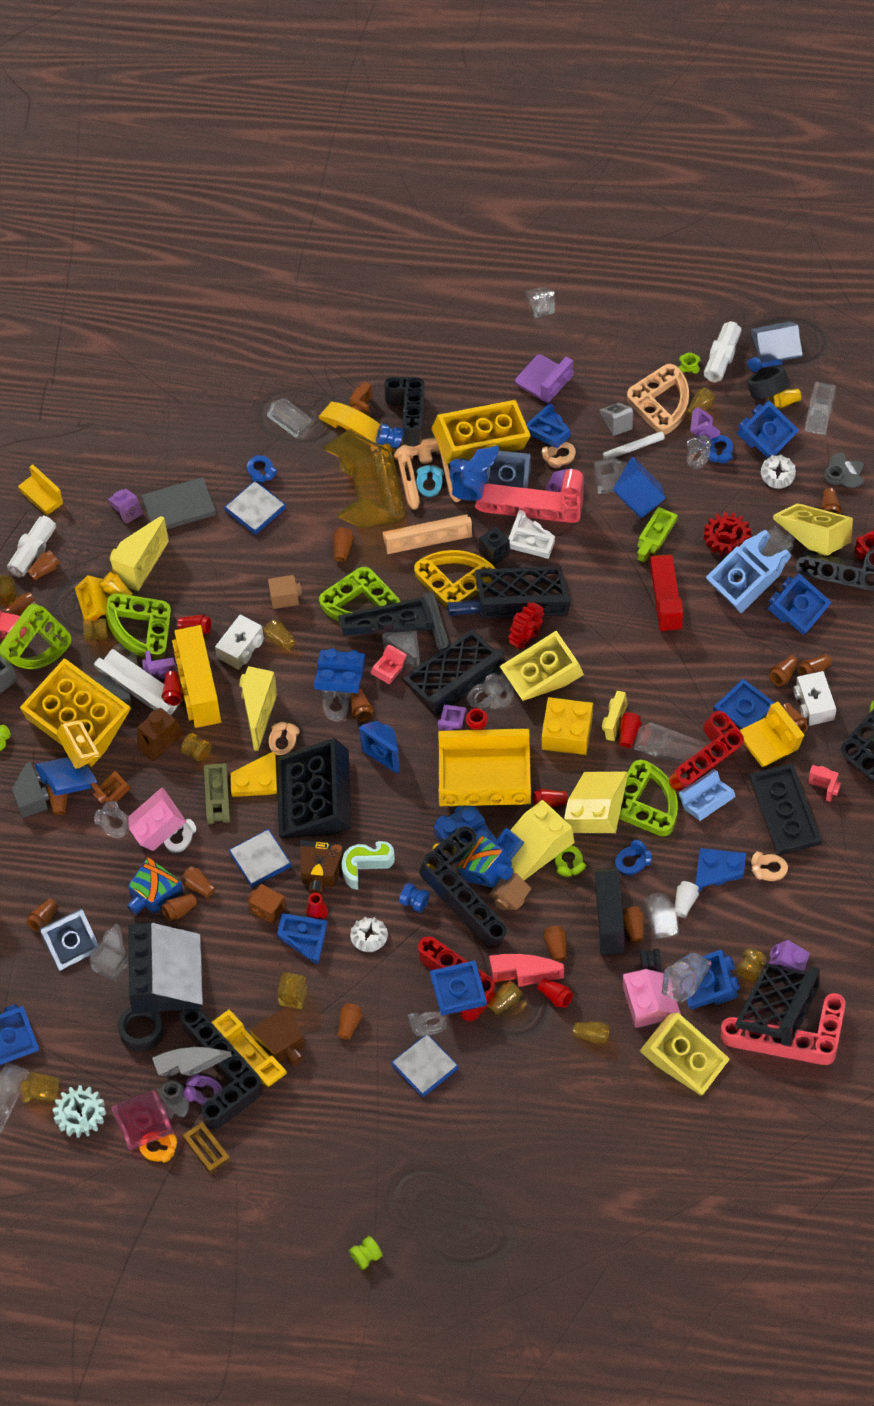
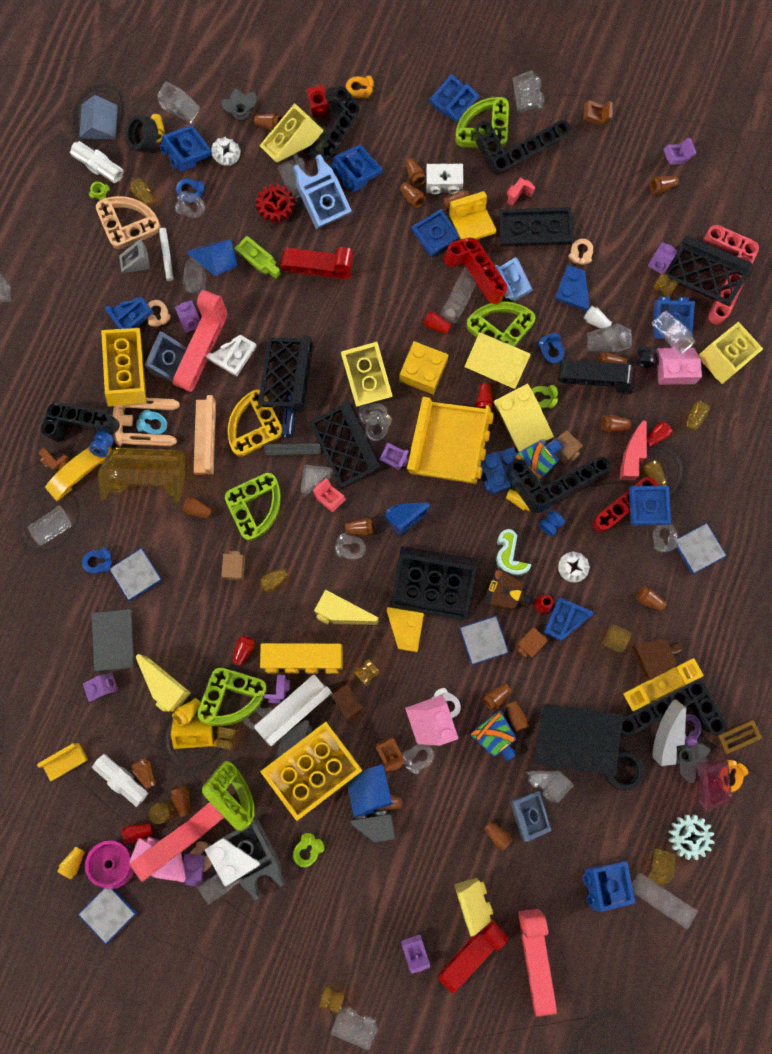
camera: 80 degrees left, 20 degrees up
(77, 743) = (349, 775): yellow slope -> none
(172, 689) = (307, 681): red cone -> none
(216, 793) = (414, 663): olive plate -> none
(239, 642) = (275, 625): white brick -> none
(292, 732) = (363, 598): light nougat piece -> none
(339, 671) = (325, 536): blue plate -> none
(396, 617) = (287, 481): black wing -> none
(471, 475) = (167, 386): blue helmet -> none
(476, 719) = (405, 431): red cone -> none
(494, 546) = (235, 384): black brick -> none
(509, 843) = (523, 438): blue tile -> none
(526, 625) = (325, 375): red gear -> none
(544, 377) = (77, 305): medium lavender bracket -> none
(616, 710) = (416, 326): light yellow plate -> none
(702, 424) = (166, 196): medium lavender bracket -> none
(755, 365) = (120, 137): blue piece -> none

